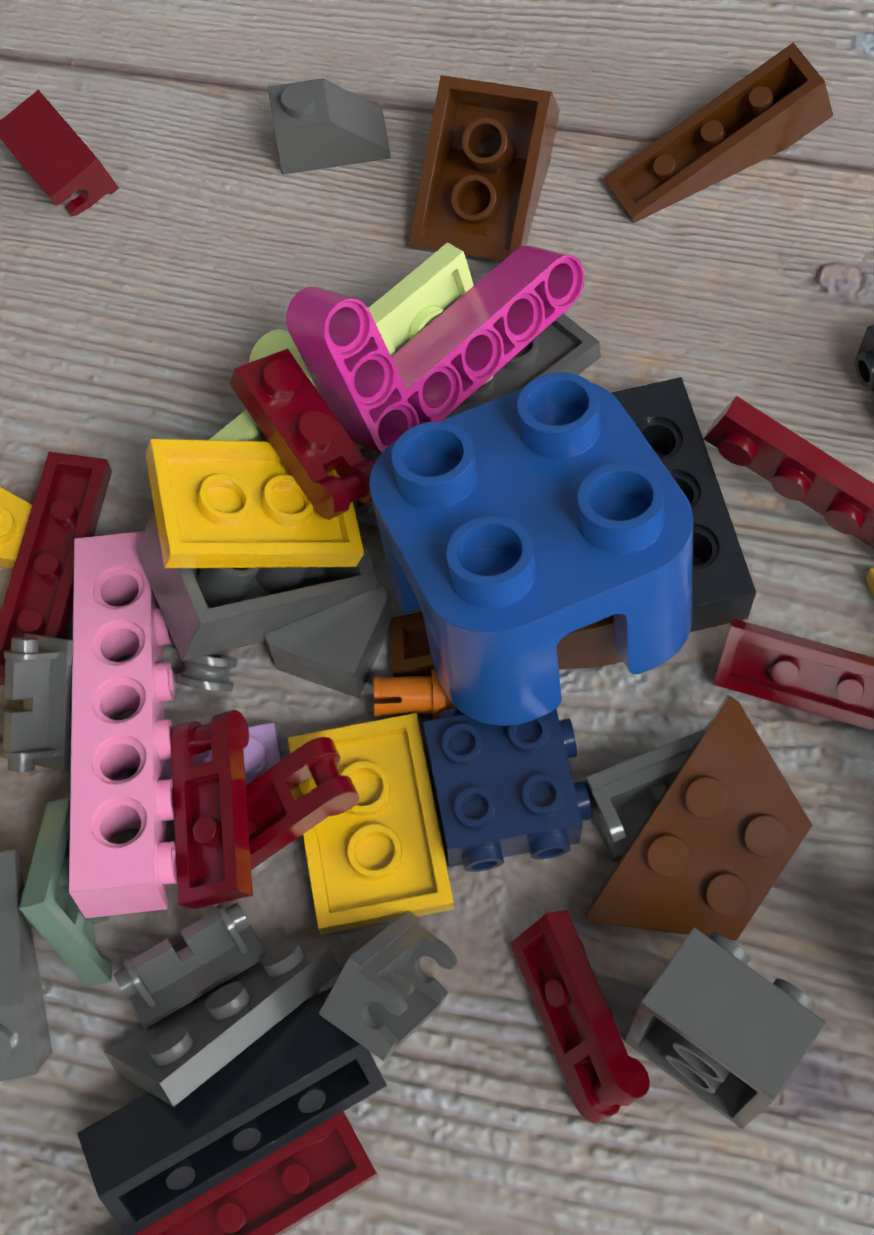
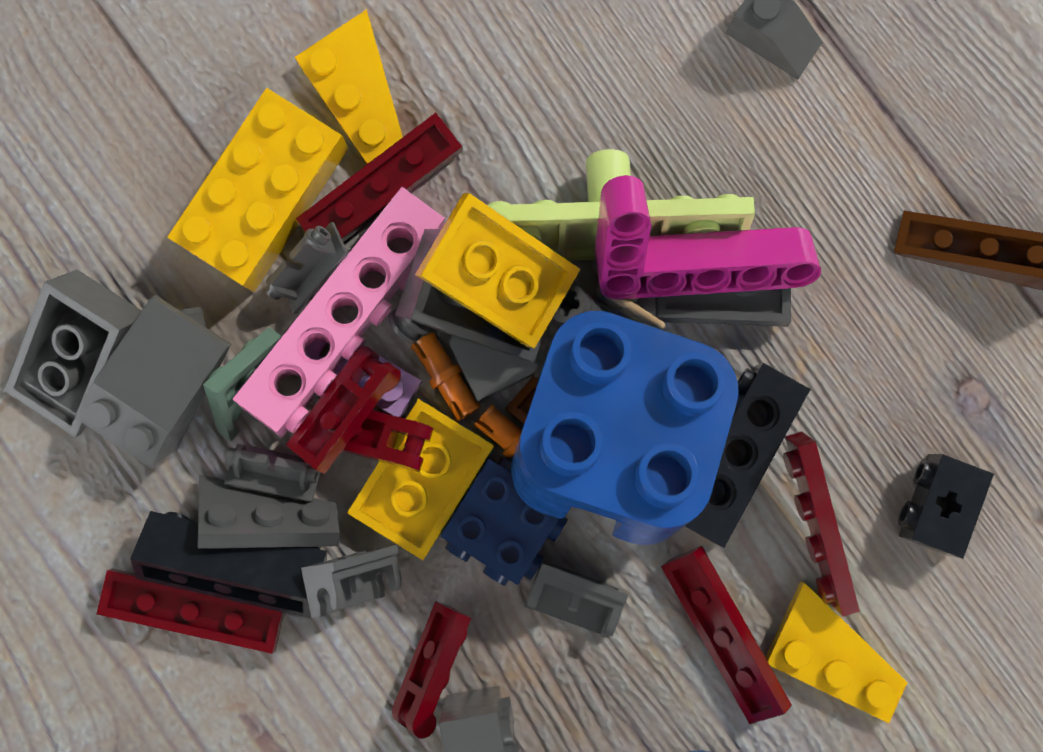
camera: 35 degrees right, 20 degrees up
(296, 694) = (445, 376): none -> orange pin
(304, 432) = (561, 253): dark red plate -> none
(483, 167) = (835, 146): reddish brown slope -> none
(709, 839) = (574, 647): reddish brown wing -> none

